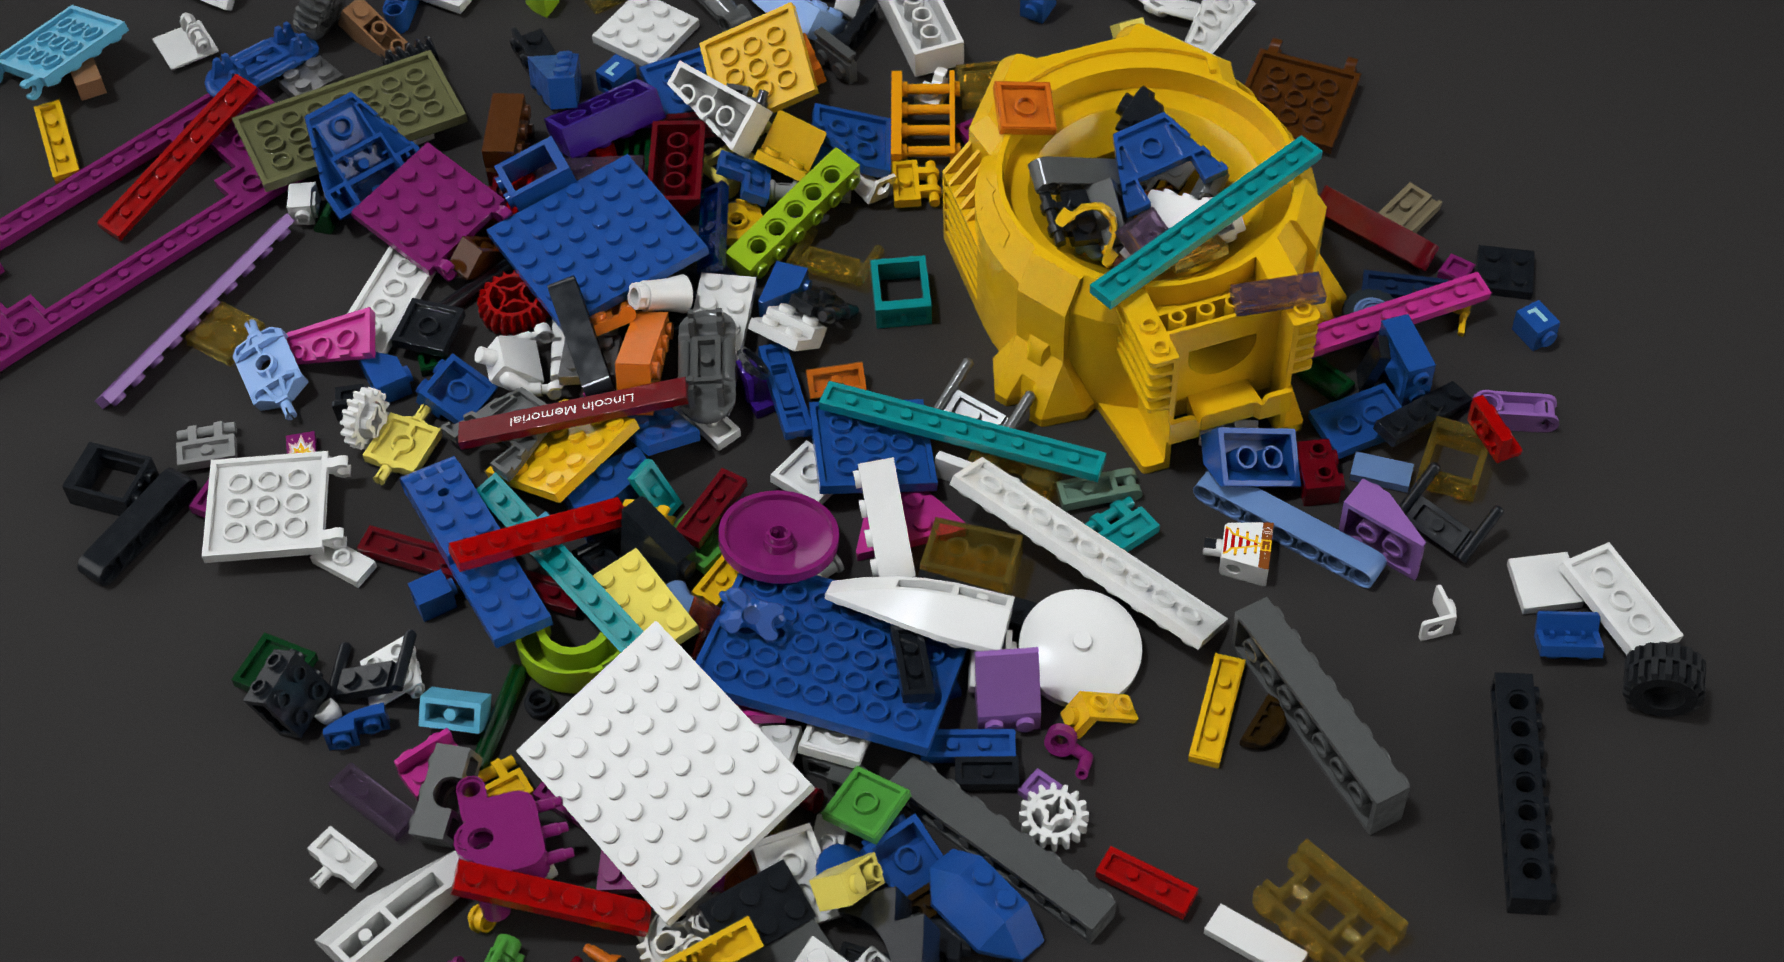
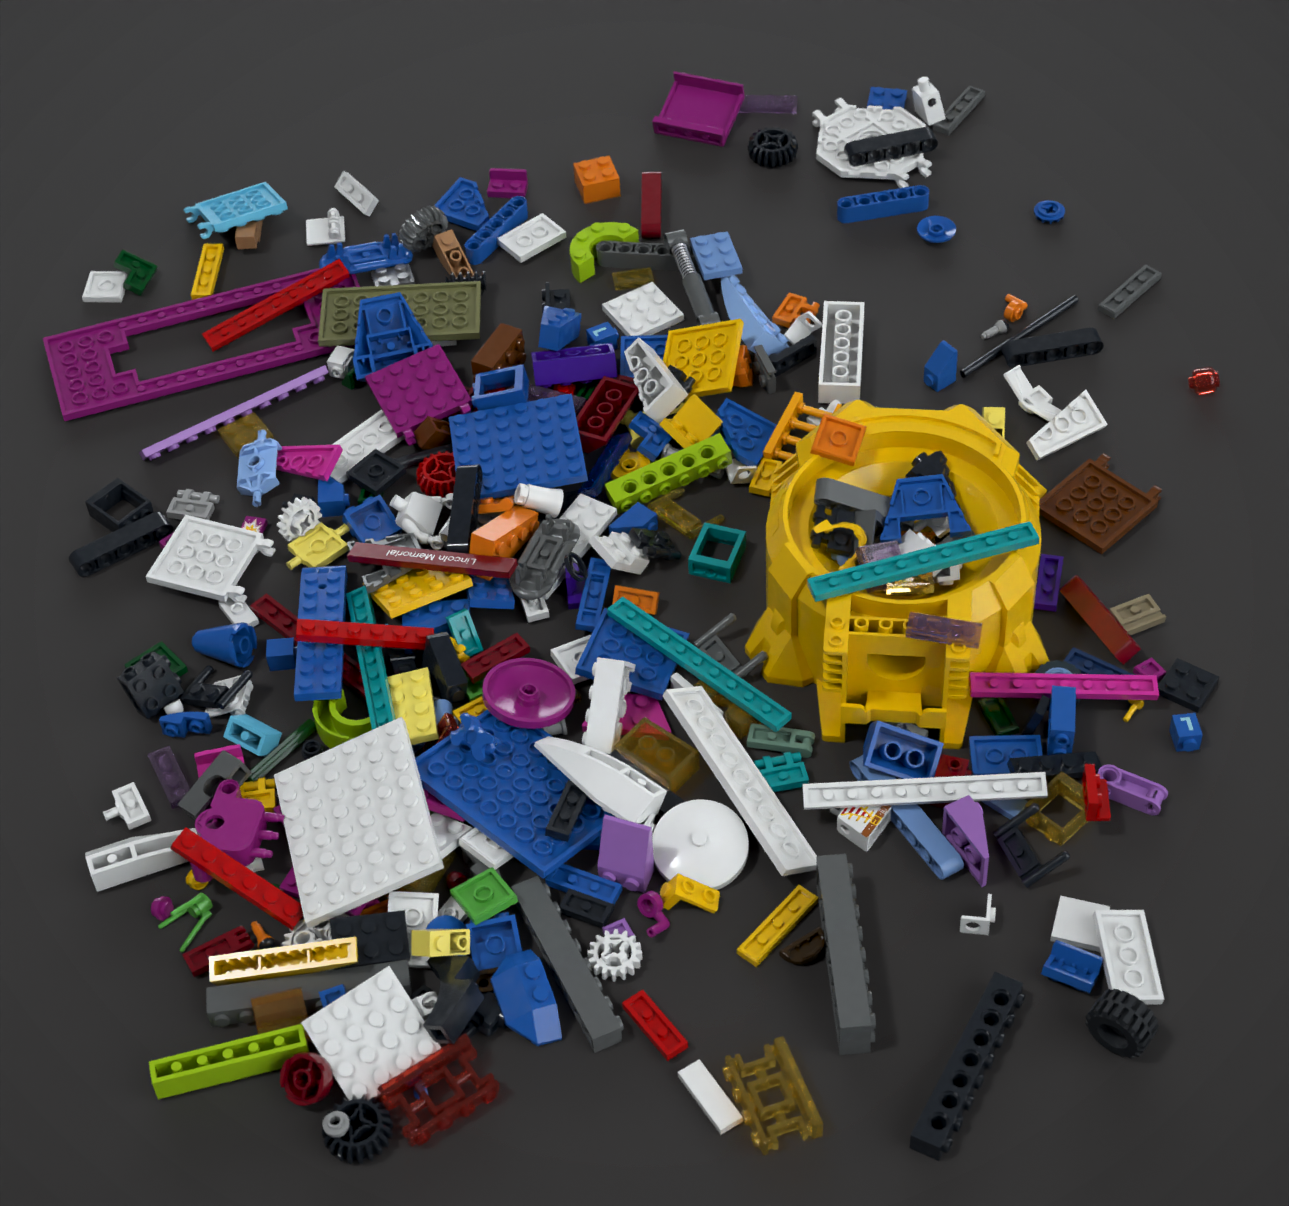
camera: 25 degrees right, 5 degrees down
(353, 606) = (227, 643): none -> blue cone
(1303, 492) = (924, 790): none -> white plate

